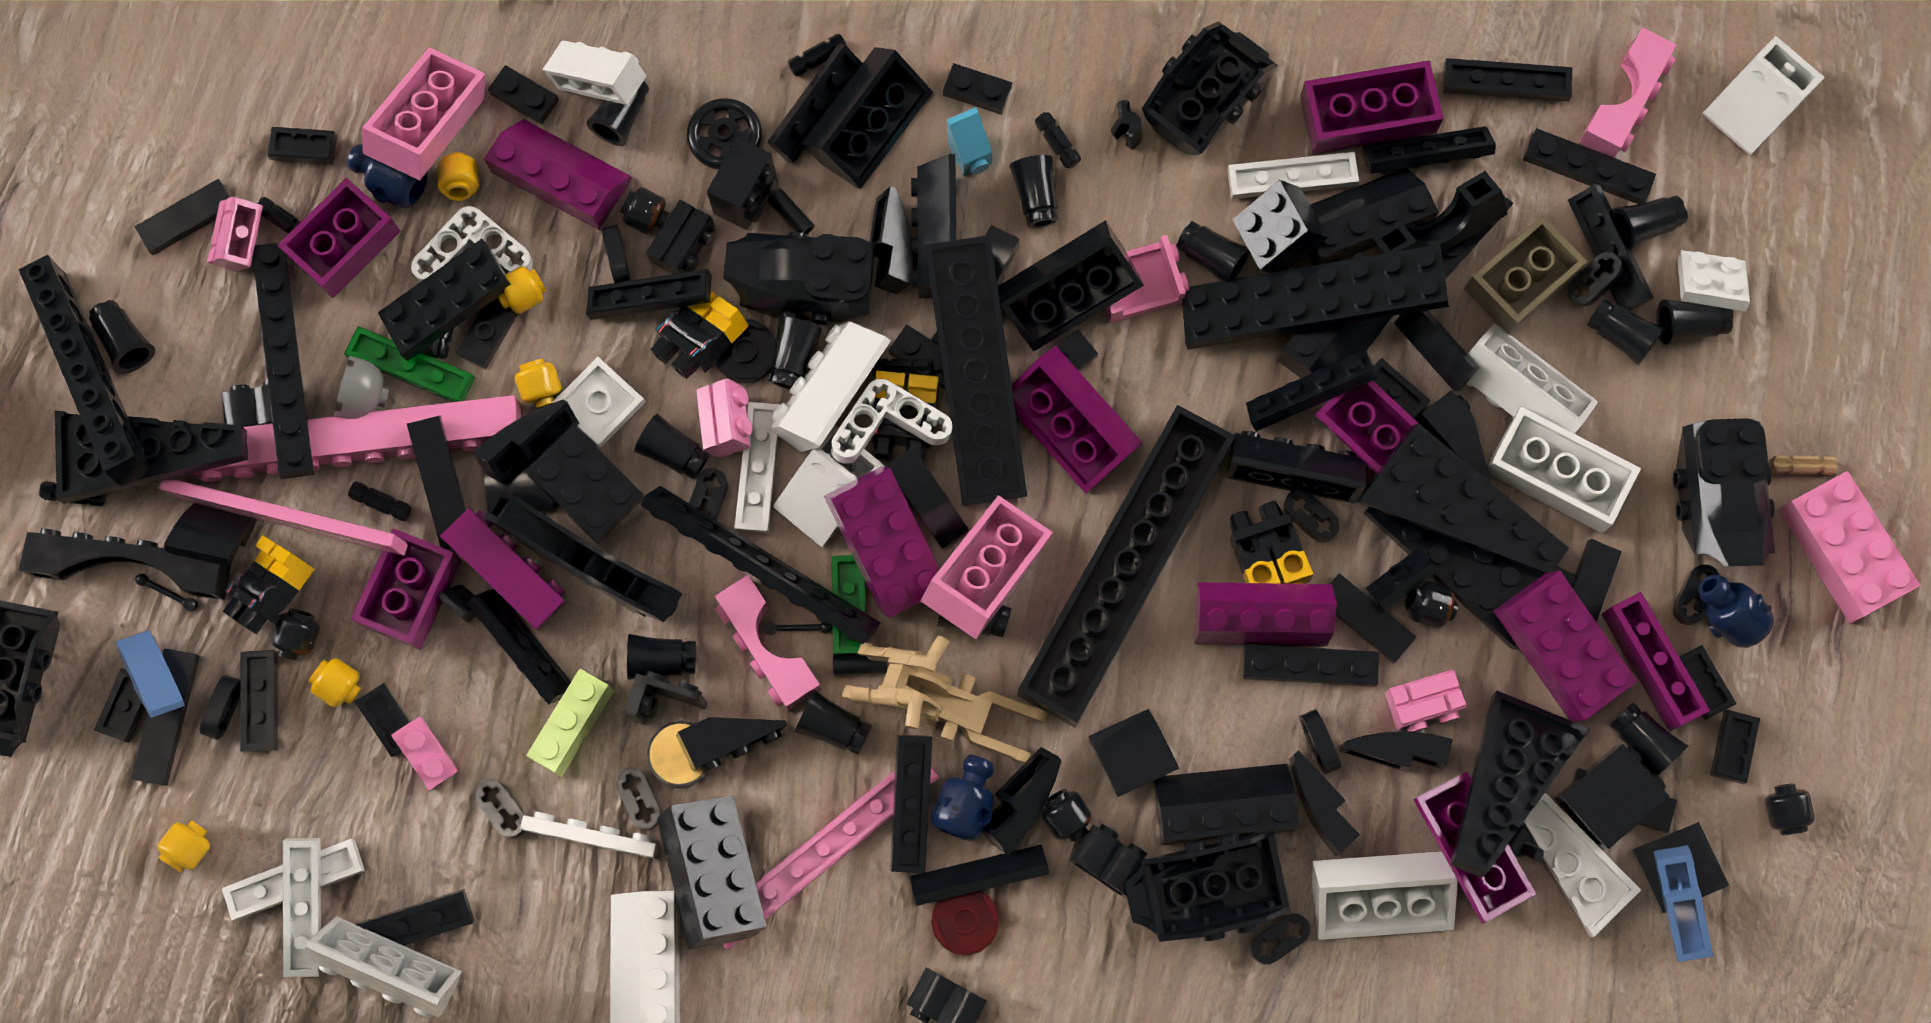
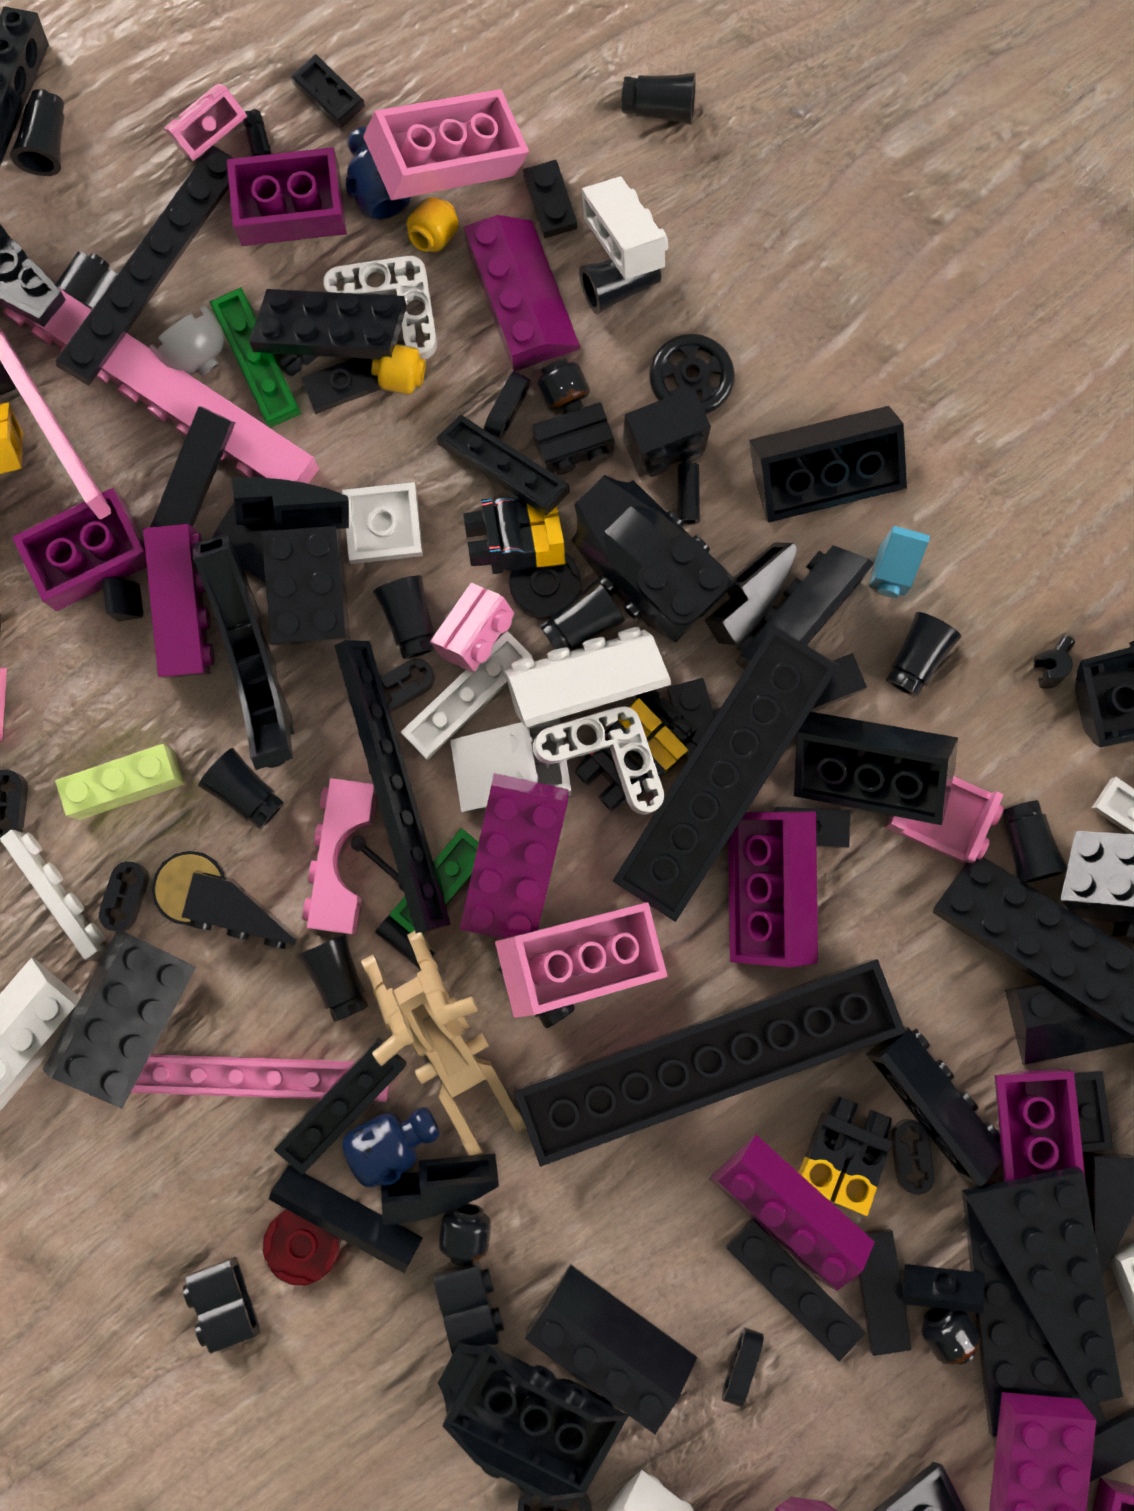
camera: 40 degrees right, 5 degrees up
(182, 217) = (178, 73): black tile -> none
(379, 501) = (131, 454): black axle -> none
(520, 645) = (136, 682): black plate -> none
(537, 382) = (345, 462): yellow head -> none
(641, 699) = (199, 814): black bracket -> none
(814, 103) = (793, 411): black plate -> none
(815, 55) = (833, 371): black axle -> none
(927, 498) = (585, 847): black slope -> none
(977, 88) = (948, 518): black plate -> none
(1057, 140) = (980, 624): black axle -> none
(1133, 752) = (570, 1230): black slope -> none
(1311, 390) = (1012, 1049): black plate -> none
(1320, 804) = (694, 1426): black slope -> none
(1400, 748) = (809, 1438): black slope -> none
(1426, 700) = (869, 1416): bright pink brick -> none

